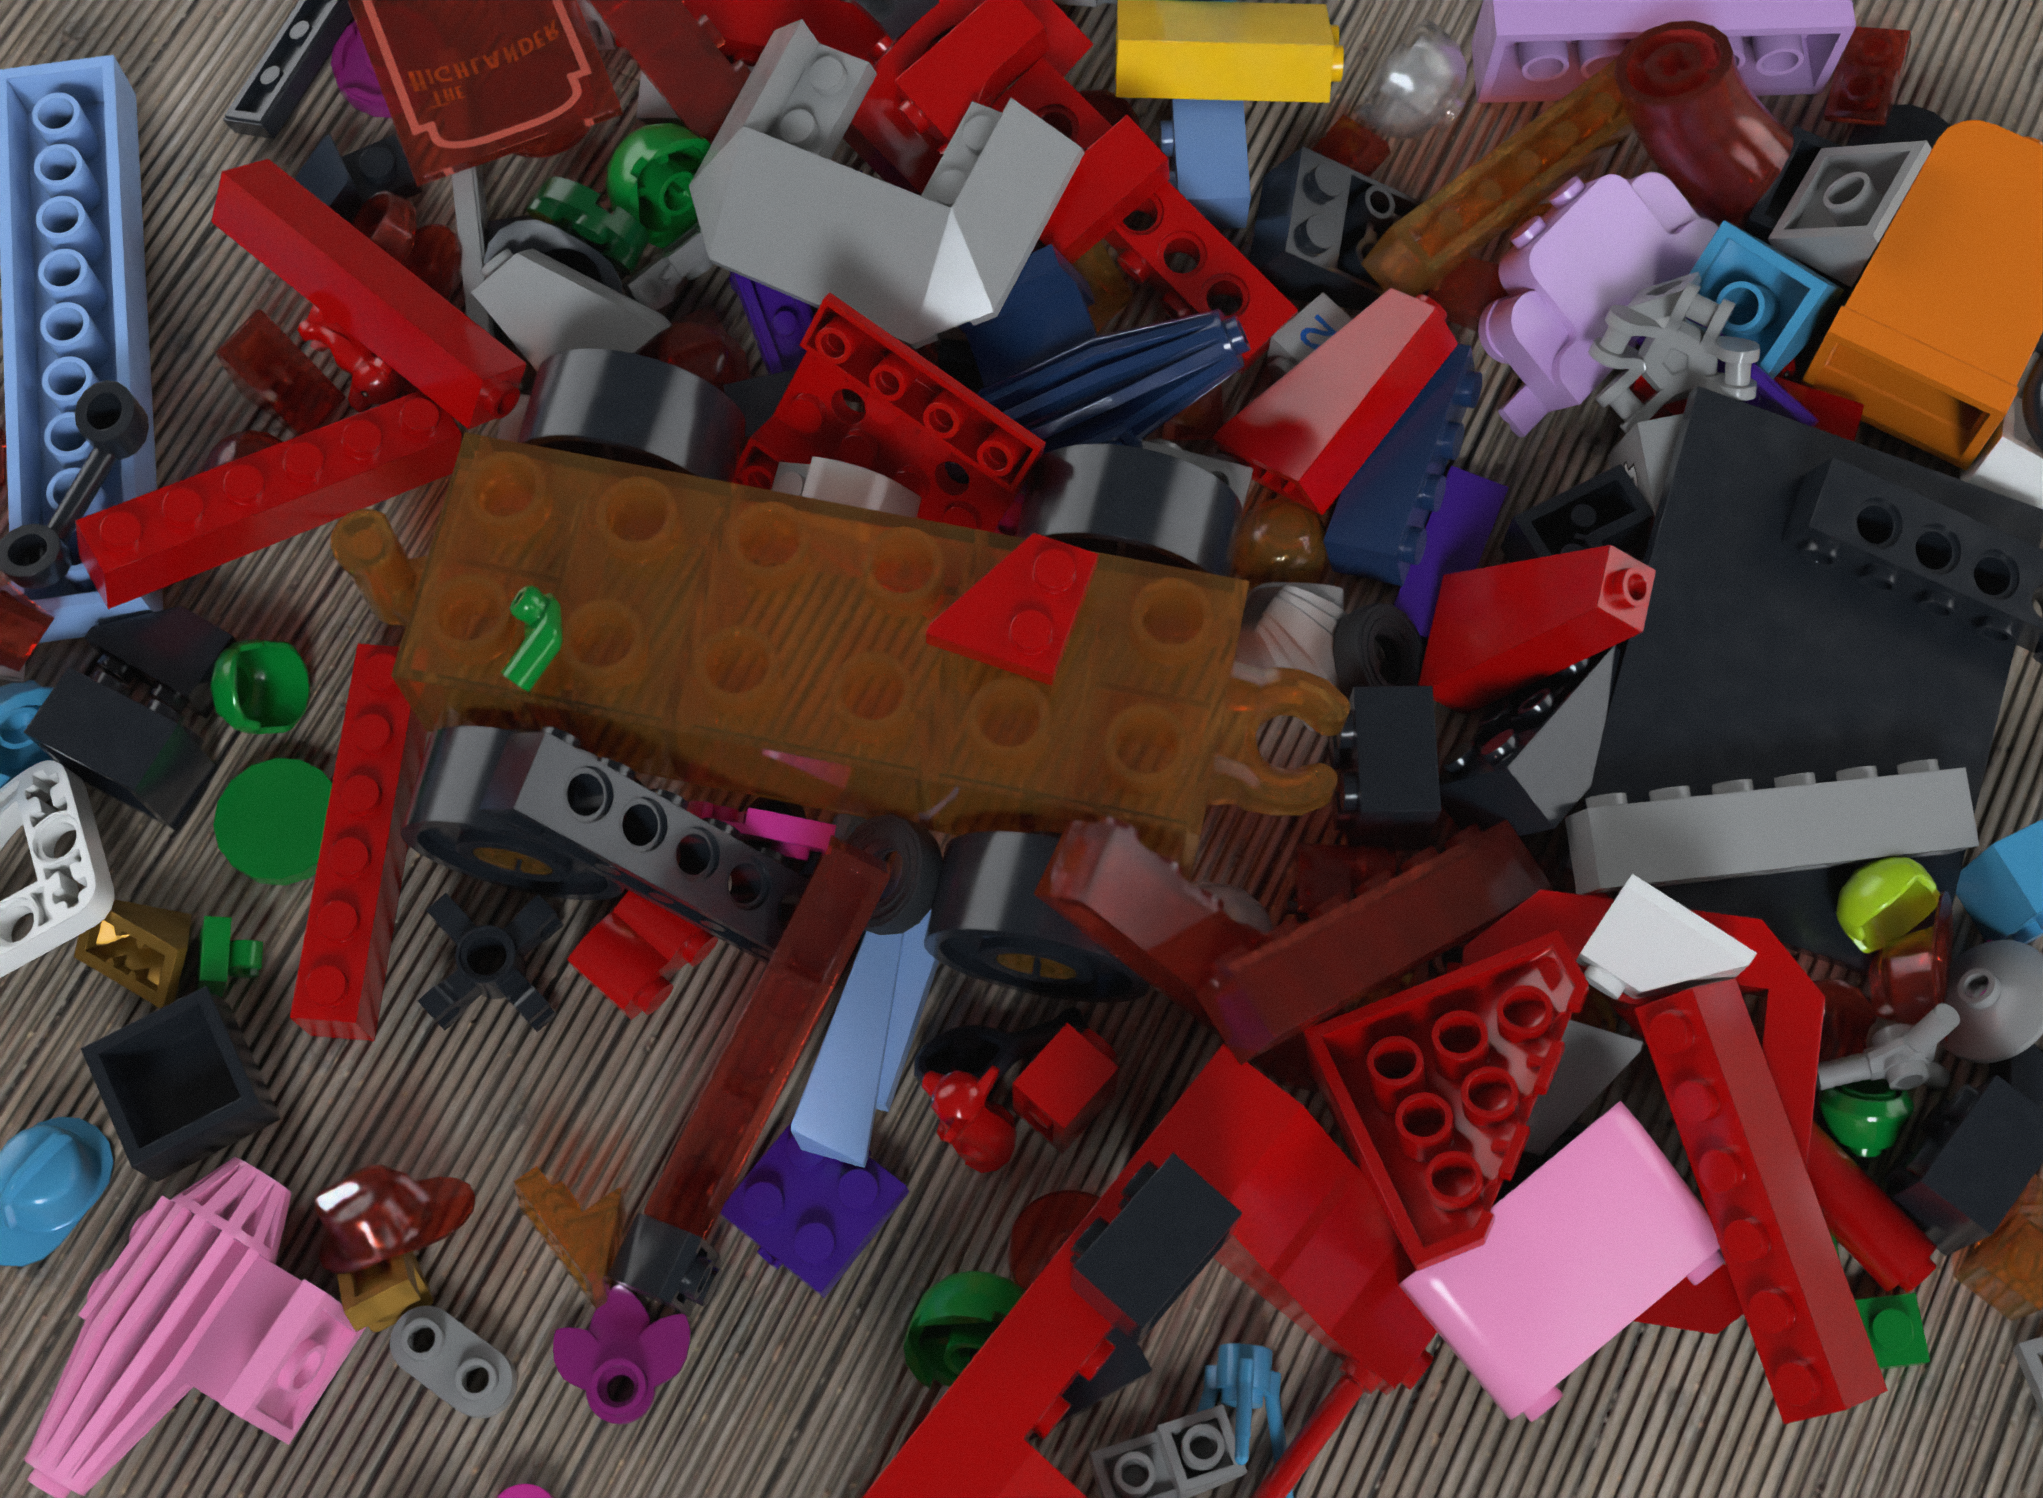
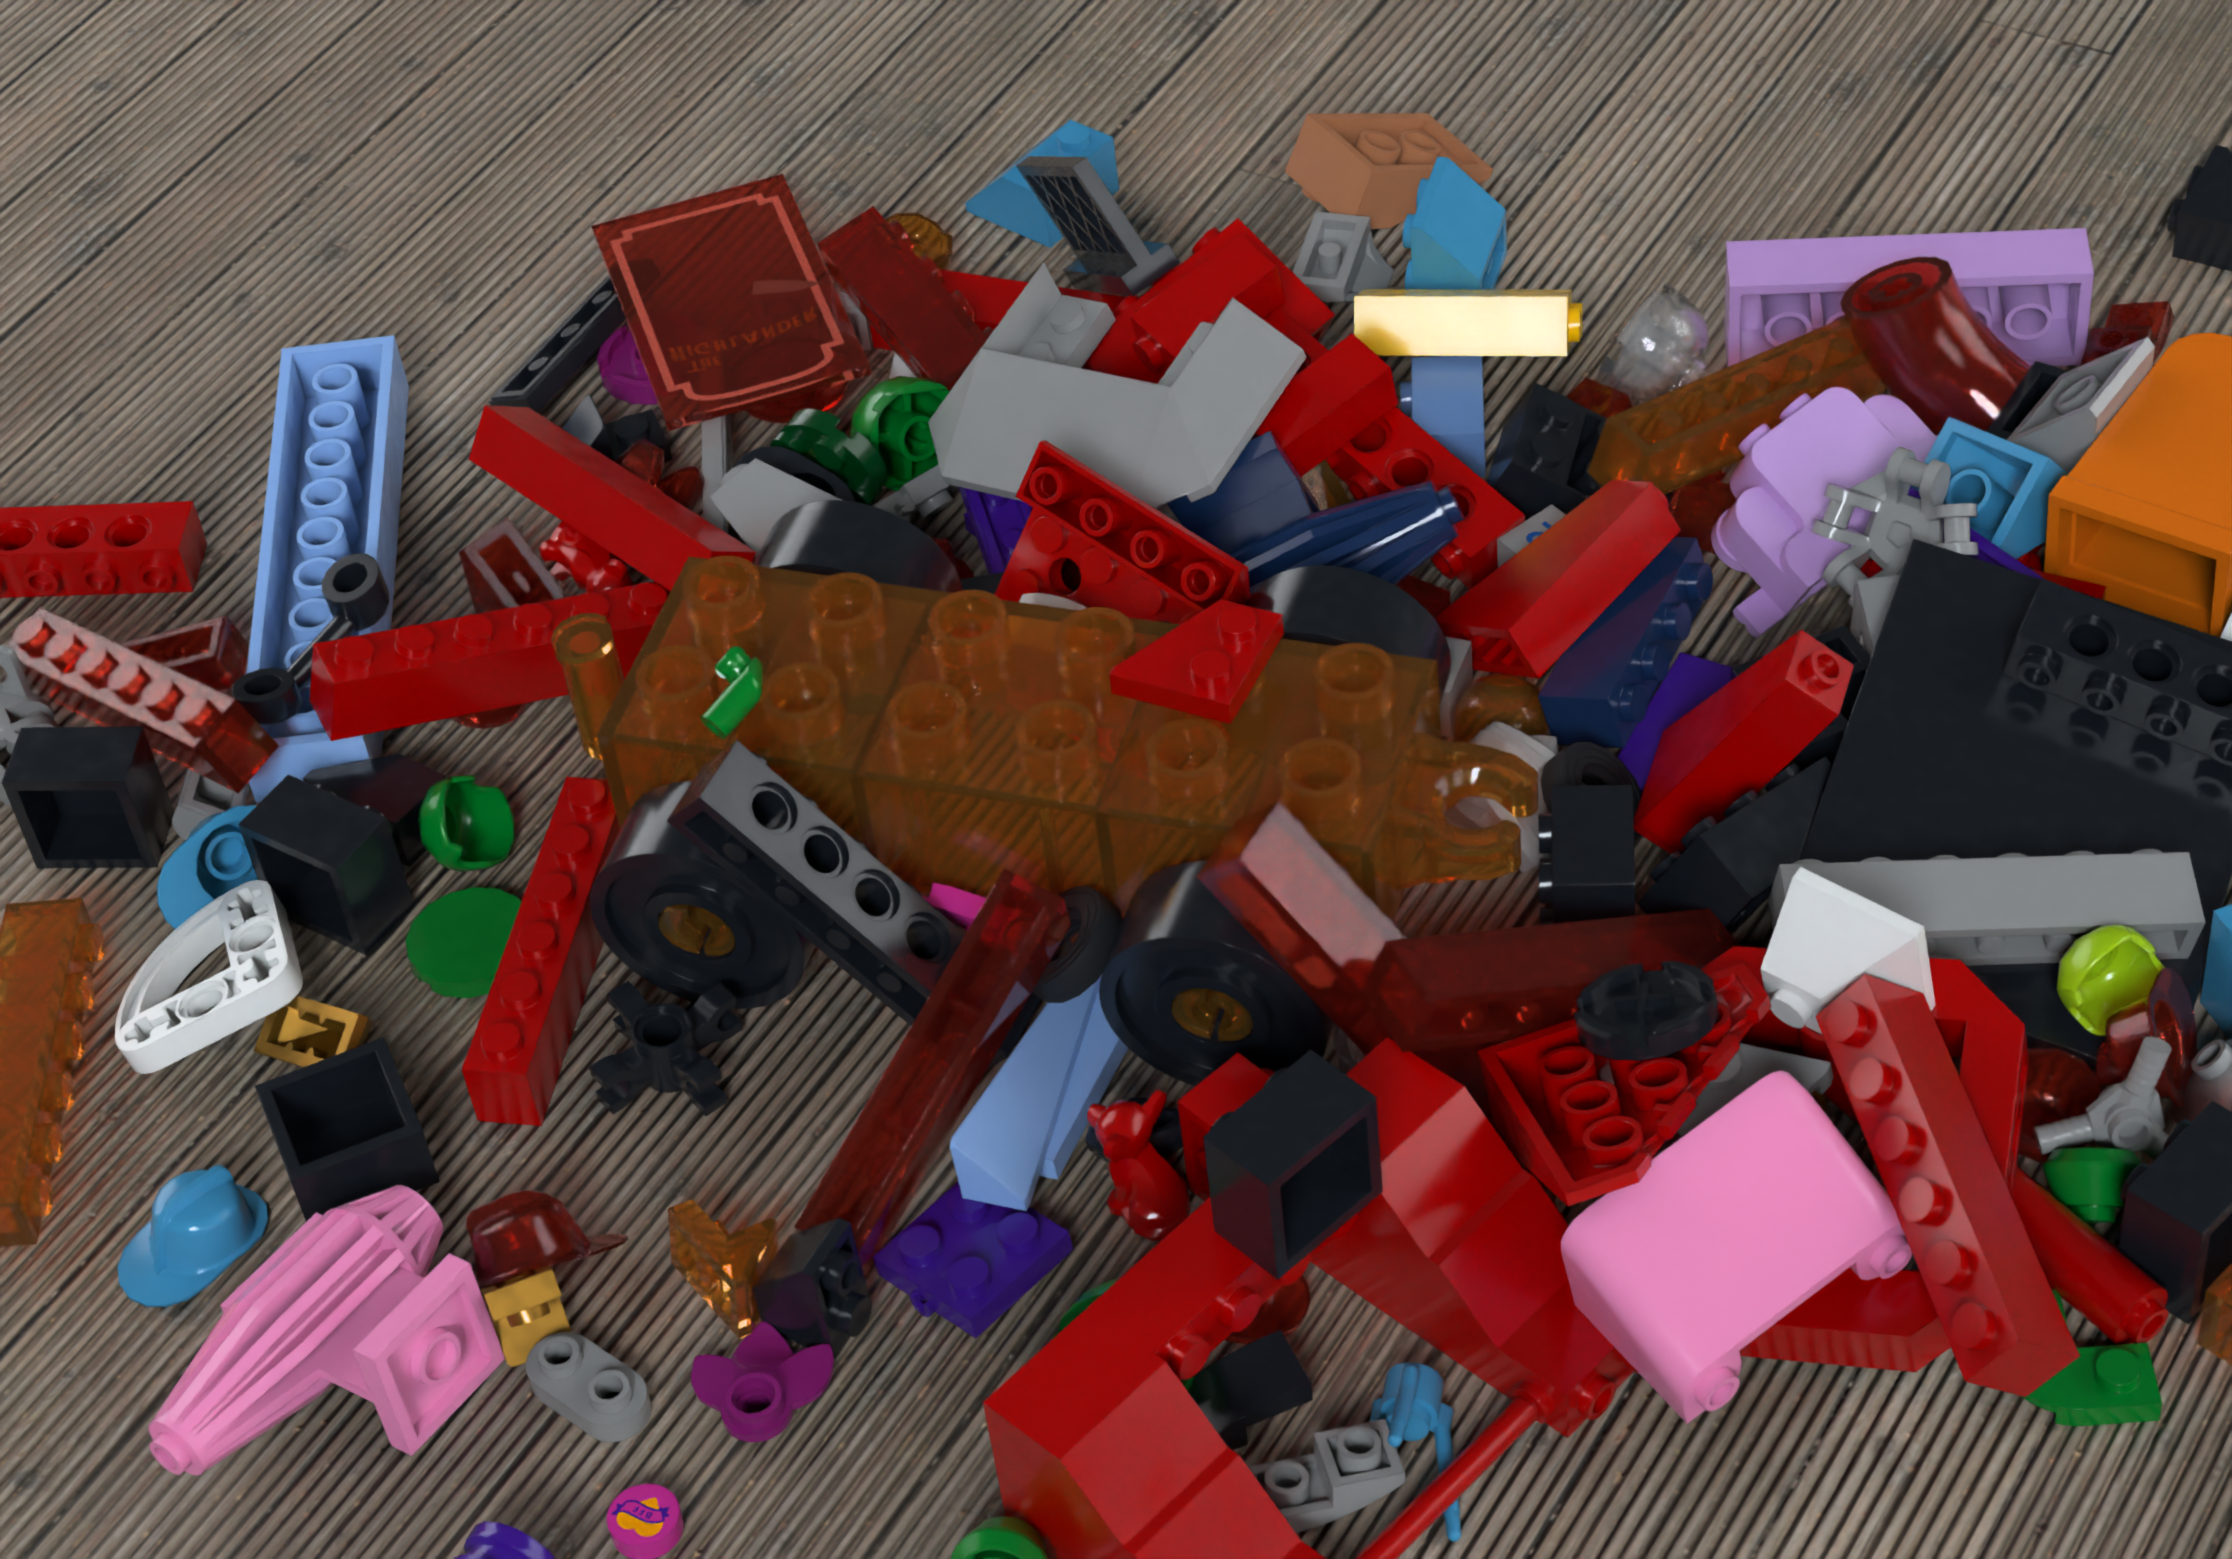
camera: 10 degrees right, 25 degrees down
(223, 957) = (411, 1044): green tile -> none
(638, 953) = (820, 1035): red brick -> none
(1471, 1002) = (1646, 1013): none -> black tile

